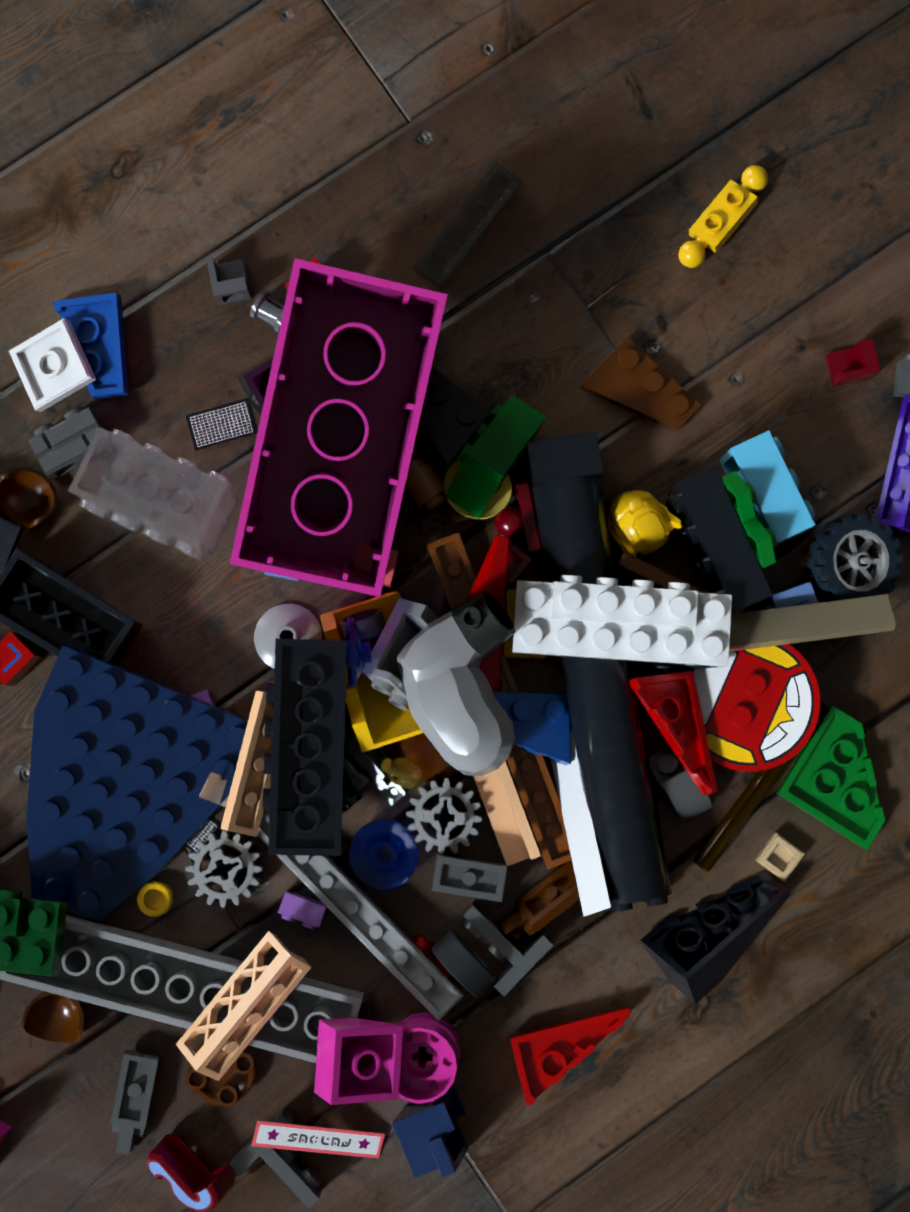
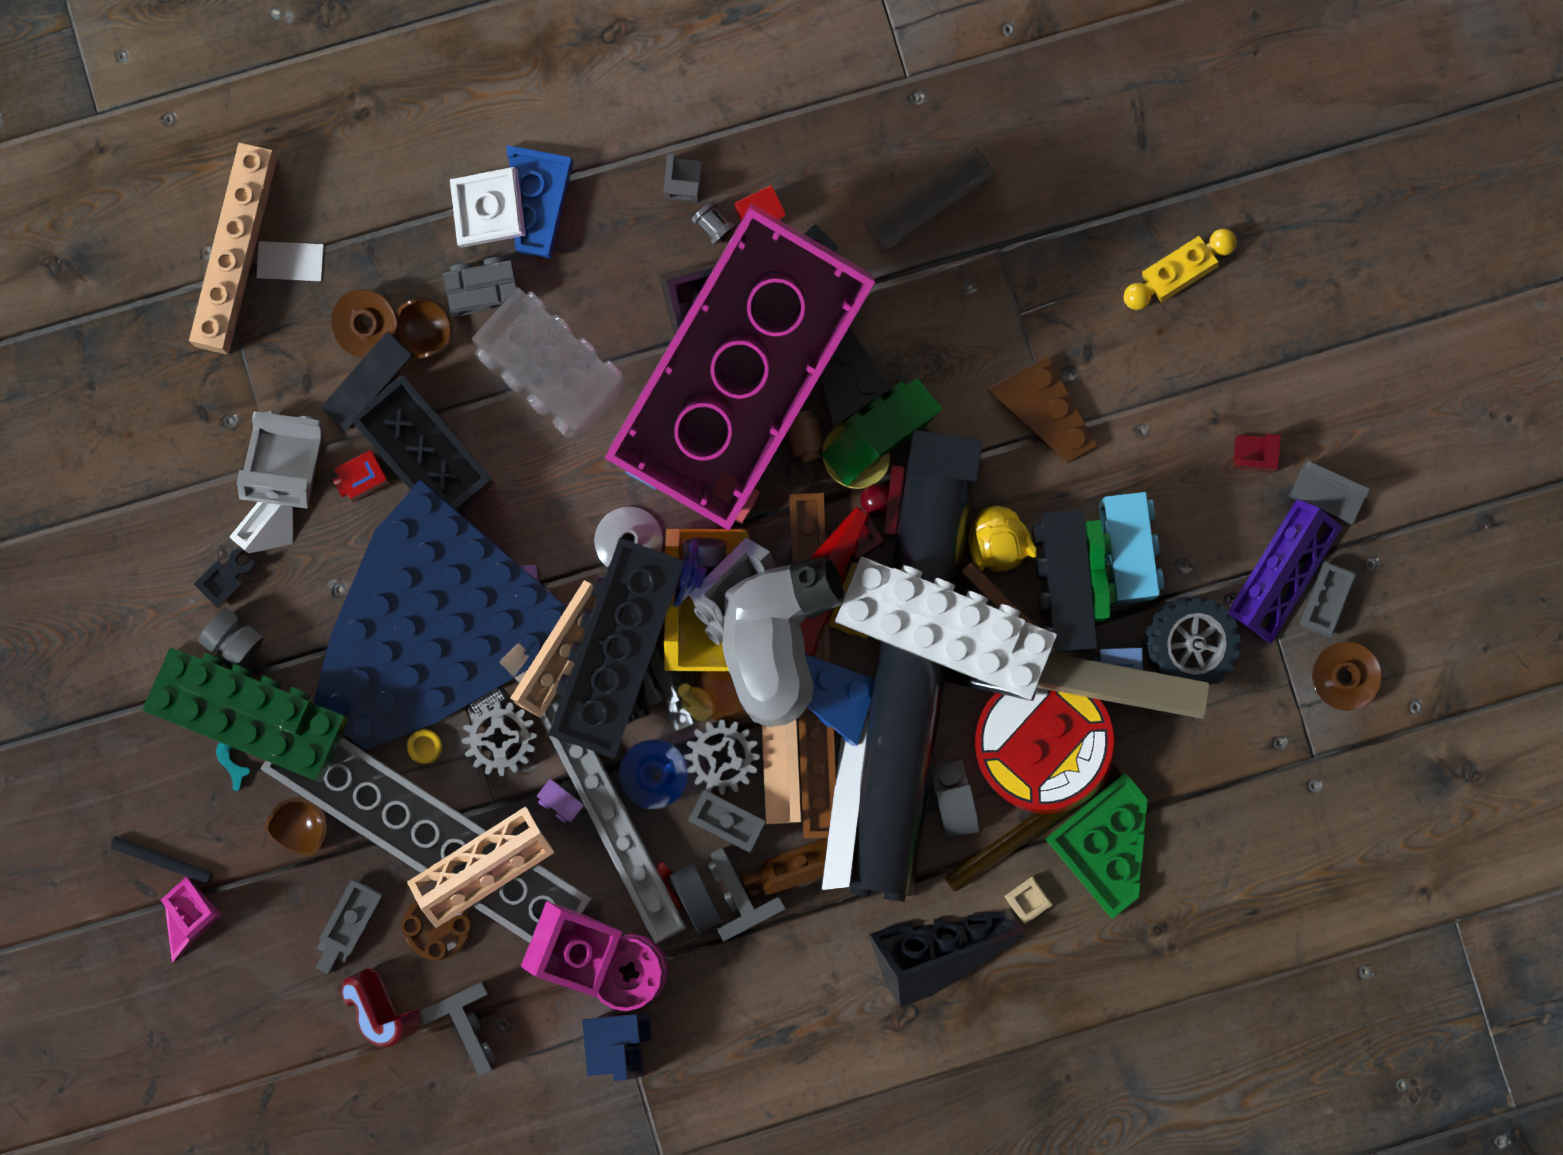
camera: 20 degrees right, 0 degrees up
(221, 424) = (630, 315): black sticker -> none
(317, 1139) = (507, 1017): sticker -> none
(551, 1051) = (751, 1010): red wing -> none
(677, 713) = (972, 729): red wing -> none

